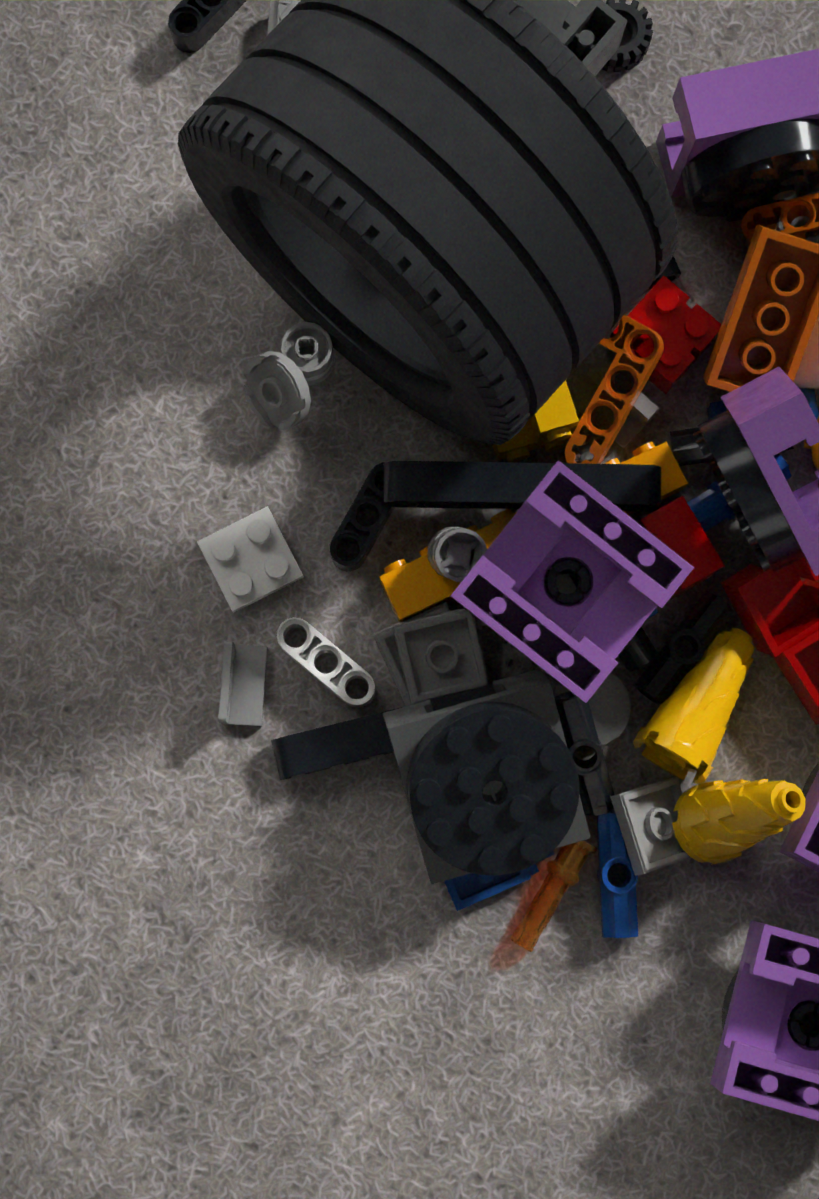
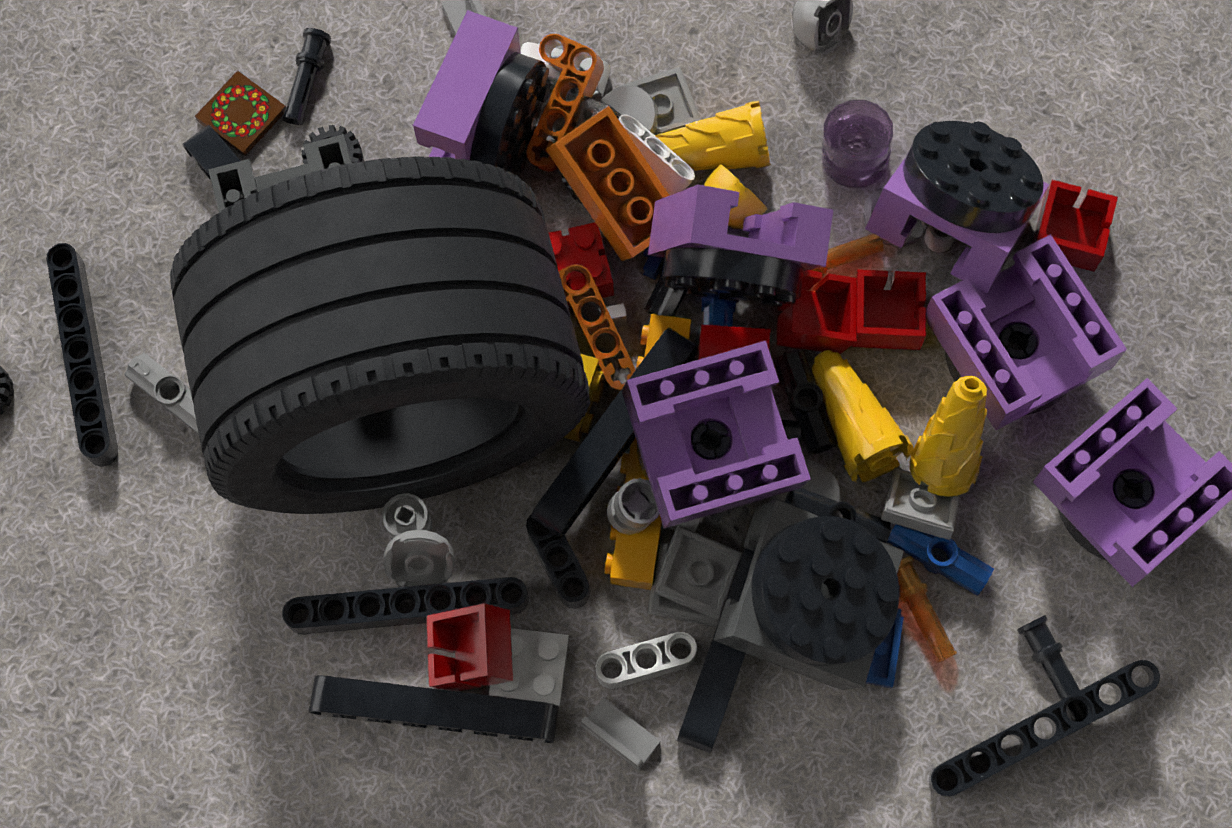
camera: 50 degrees left, 10 degrees down
(152, 501) = (434, 707): none -> black beam
(221, 392) = (389, 601): none -> black beam
(235, 503) = (480, 643): none -> red piece
(531, 1081) = (1061, 727): none -> black beam
(589, 1041) = (1048, 653): none -> black pin

